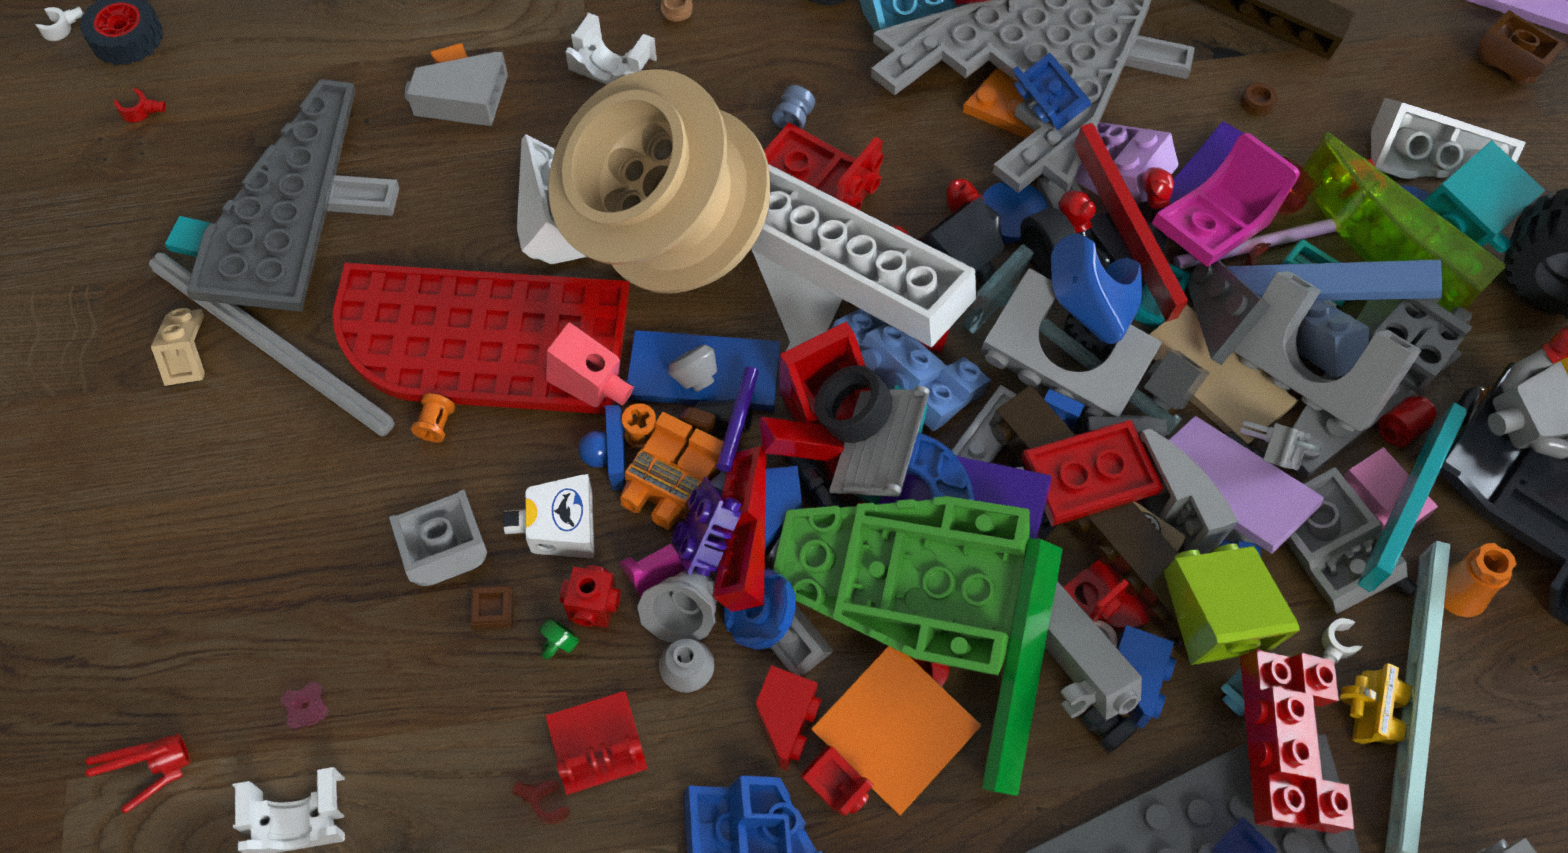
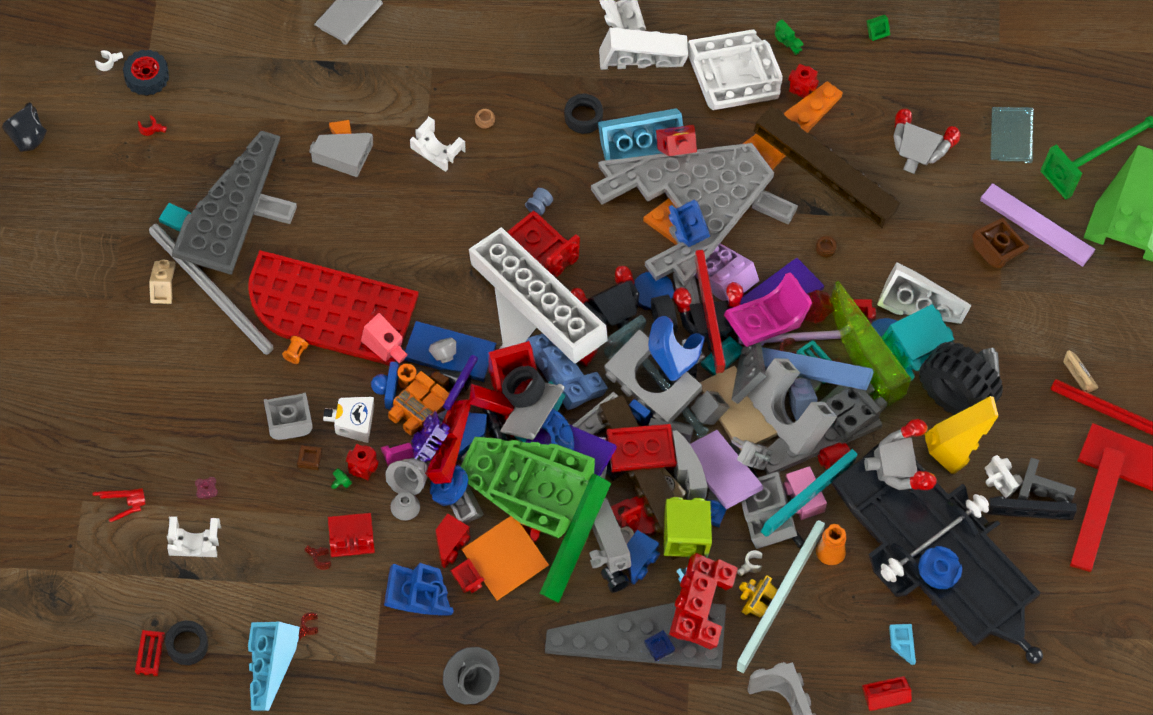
camera: 10 degrees right, 0 degrees up
(535, 223) = (381, 240): white wedge -> none
(659, 182) = (445, 242): tan wheel -> none

